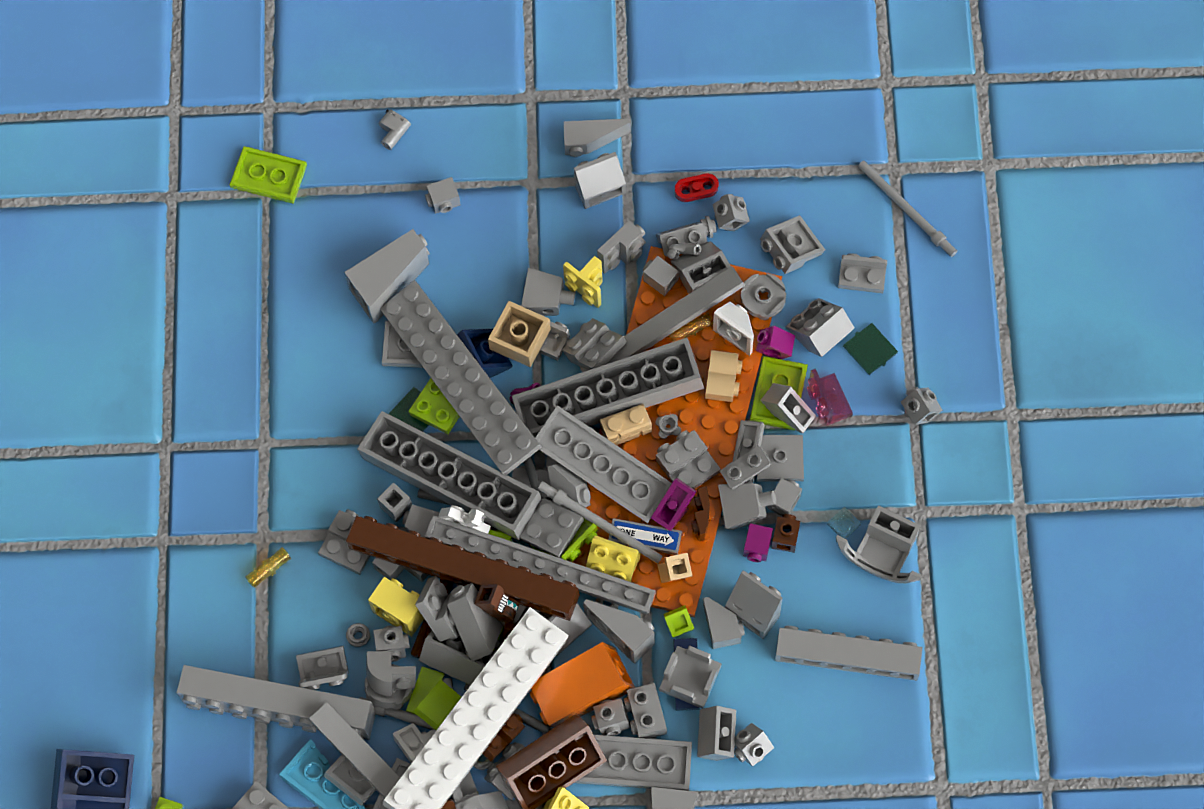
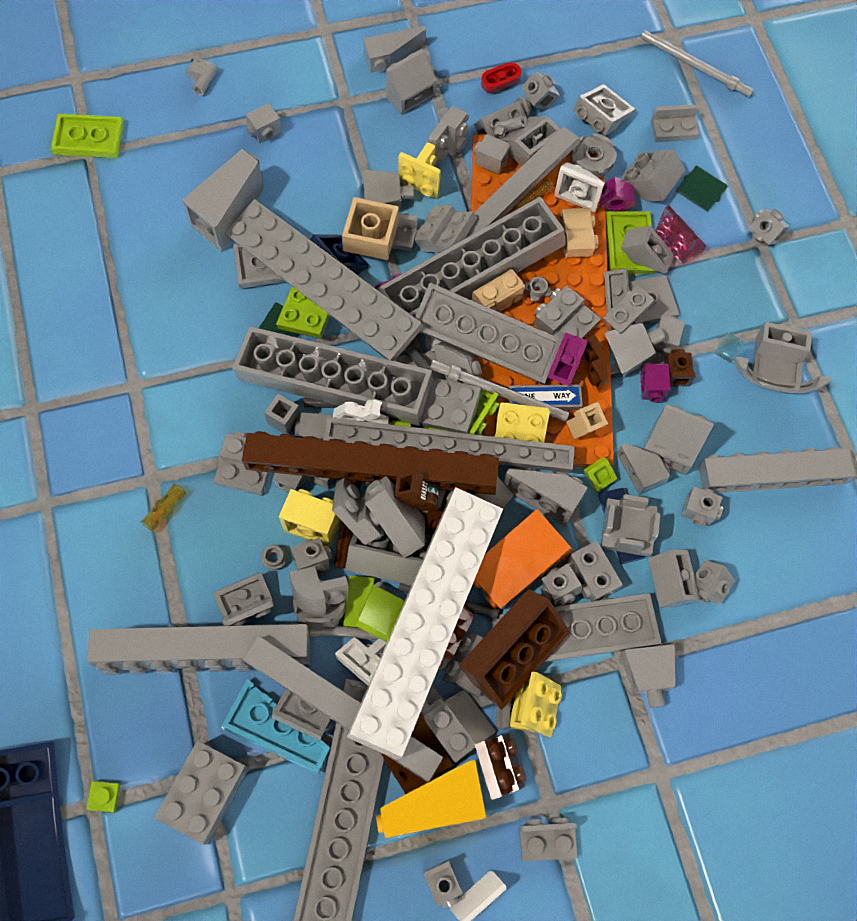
camera: 20 degrees left, 0 degrees up
(762, 665) = (702, 506): none -> light grey brick

